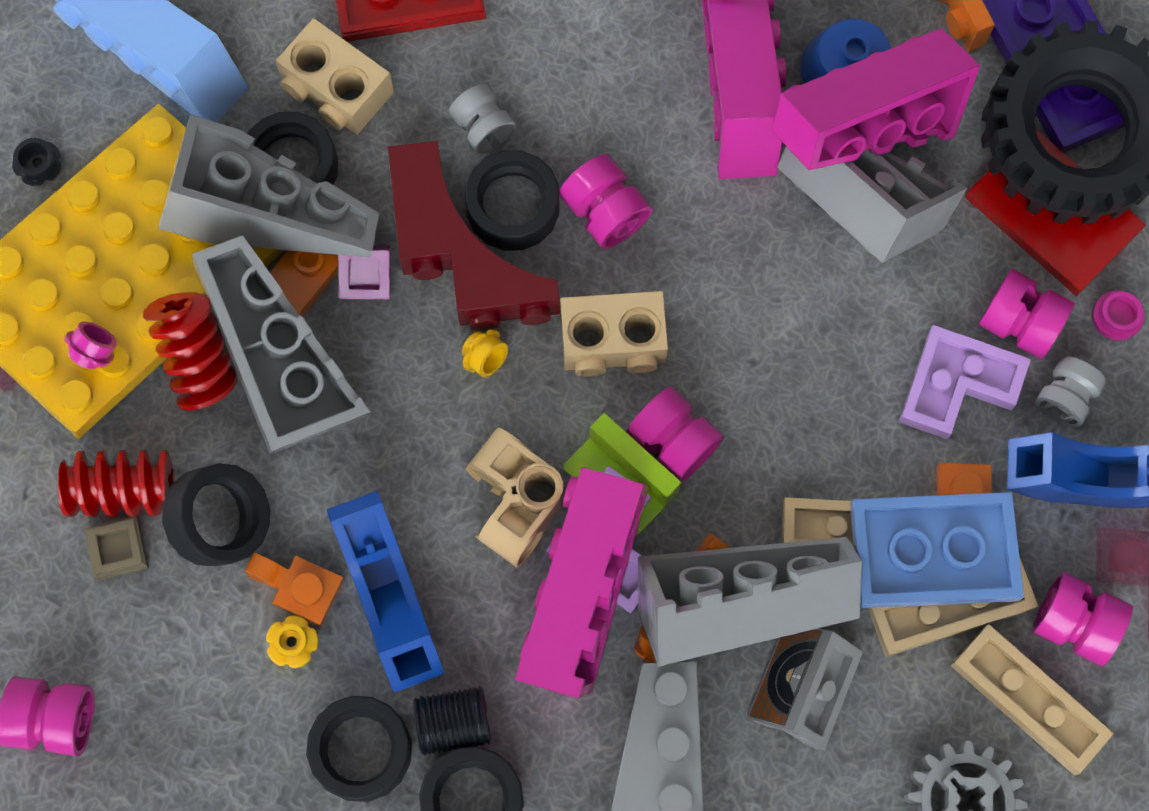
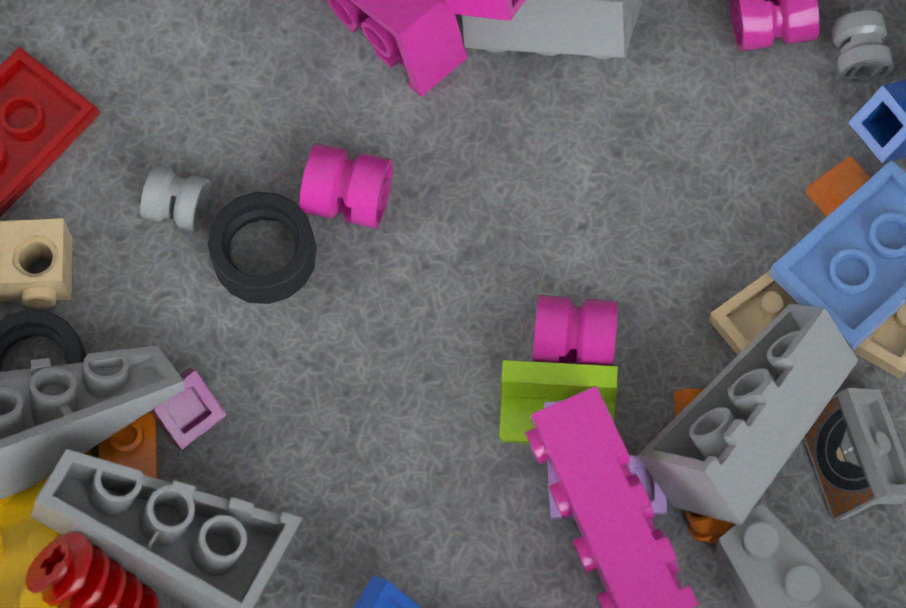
camera: 35 degrees left, 5 degrees down
(437, 240) = (225, 328): dark red arch -> none
(483, 346) = (350, 395): yellow plate -> none
(518, 521) = (458, 475): tan piece -> none
(611, 318) = (436, 283): tan brick -> none
(956, 367) = (752, 103): lavender plate -> none

